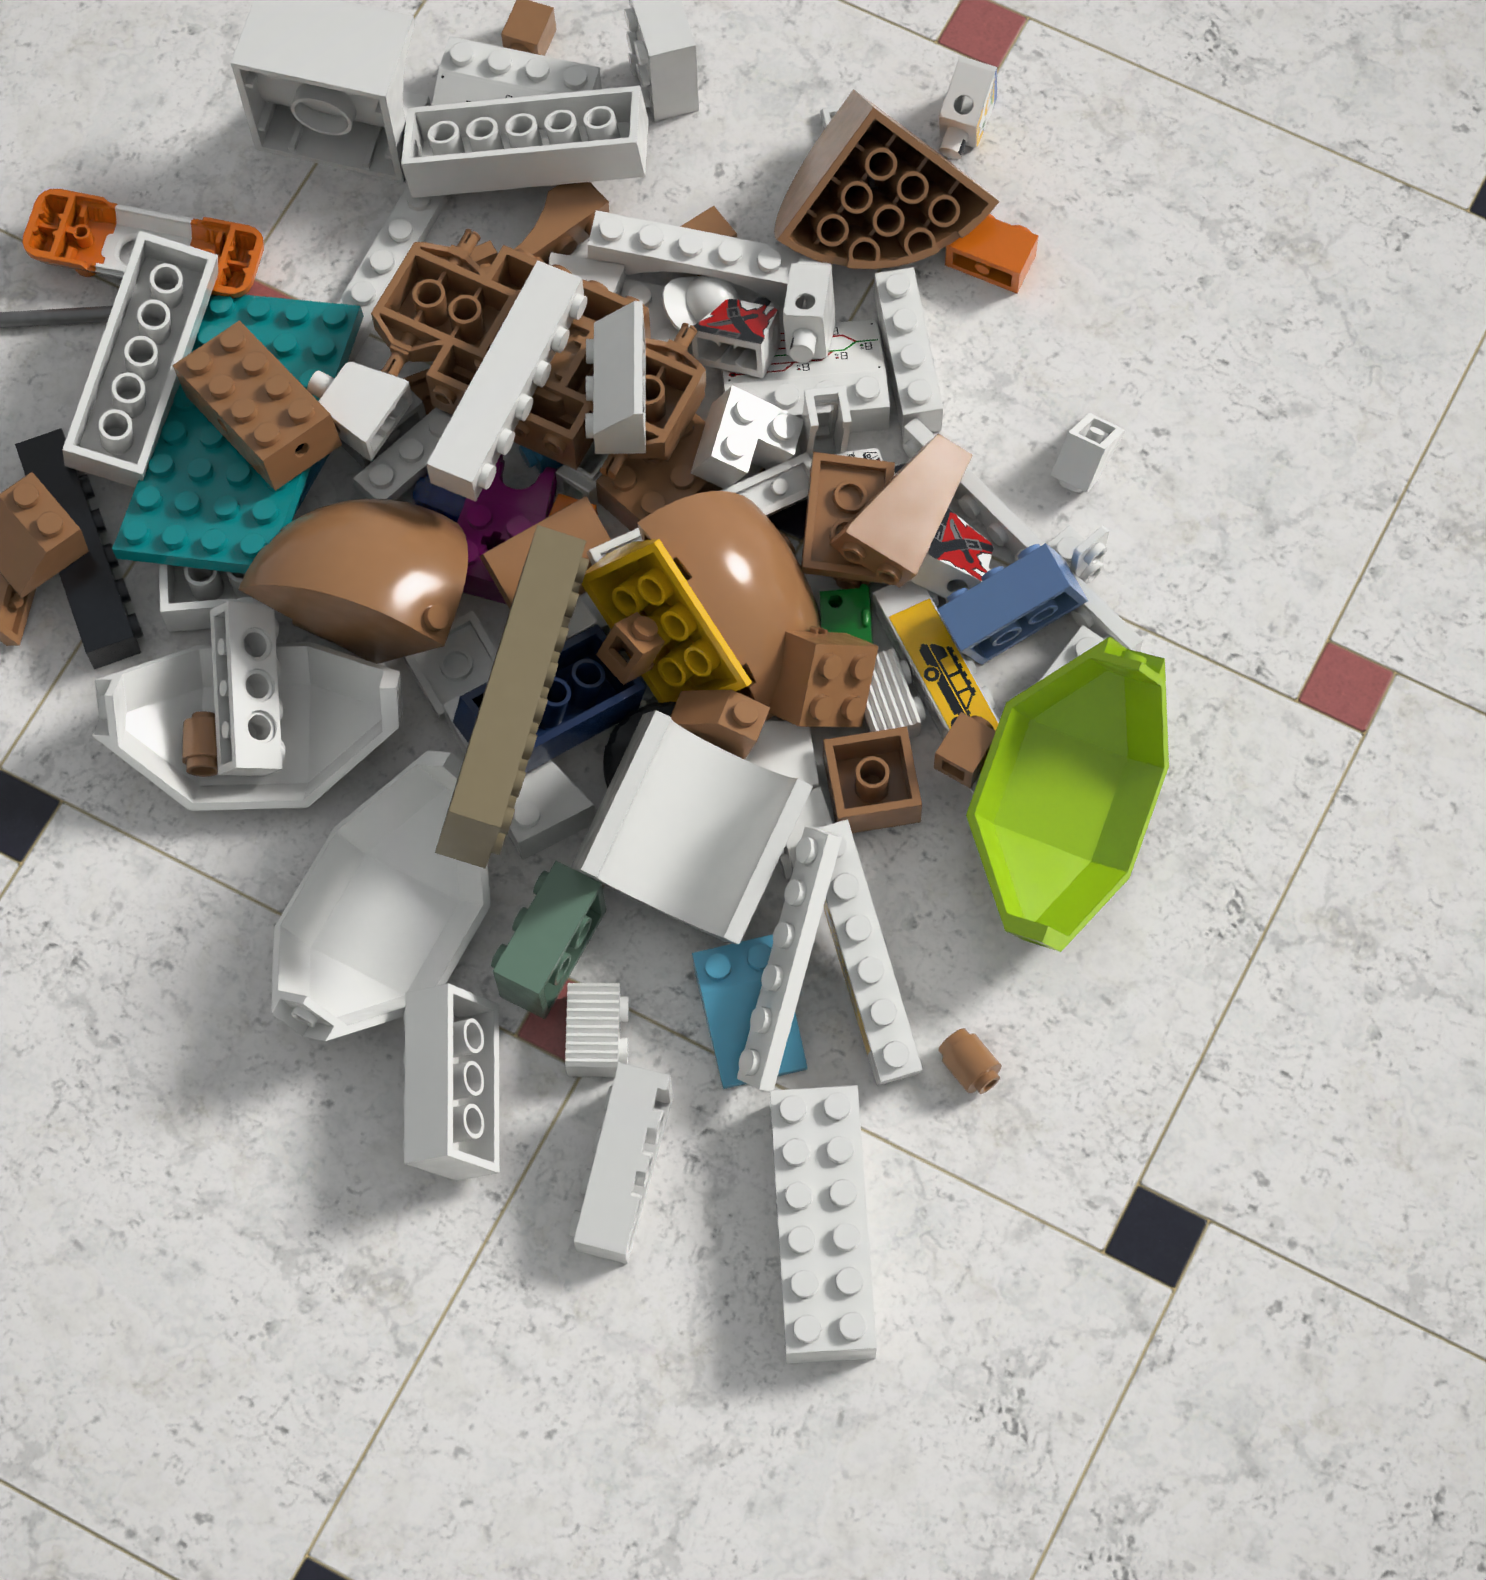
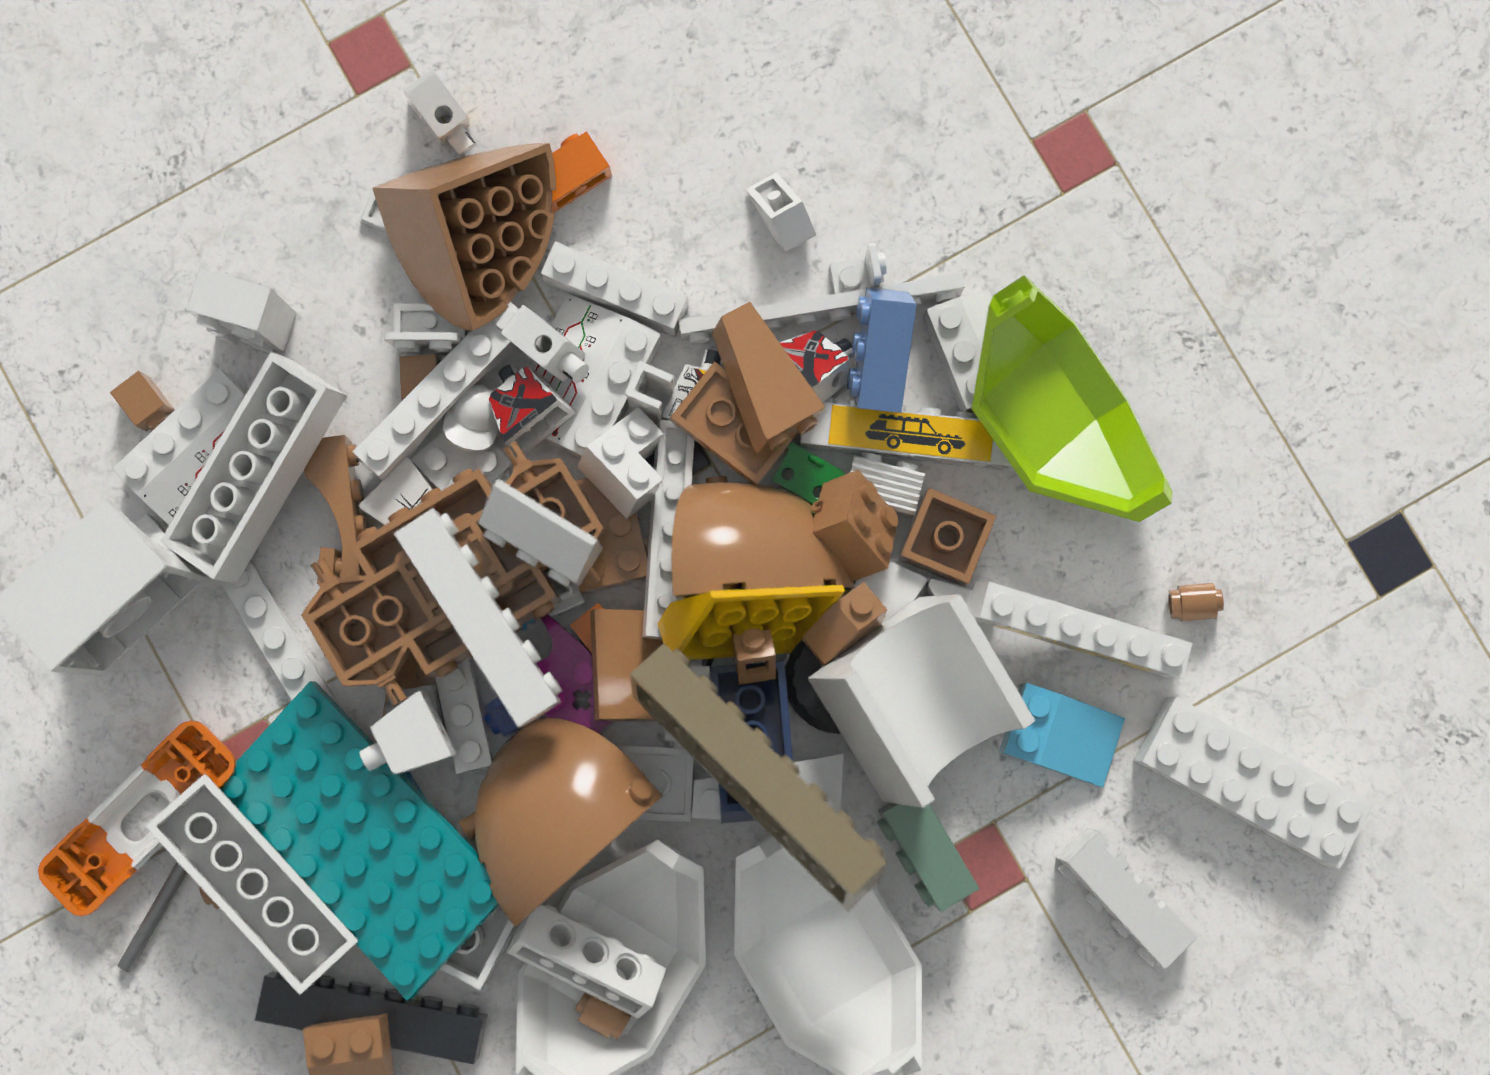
camera: 60 degrees left, 15 degrees up
(257, 405) = (359, 819): medium nougat brick -> none
(451, 1082) = (996, 988): white brick -> none
(594, 1029) = (1009, 855): white brick -> none
(749, 208) = (422, 327): none -> white bracket
(788, 958) = (1061, 687): white plate -> none
(965, 749) = (975, 456): medium nougat brick -> none

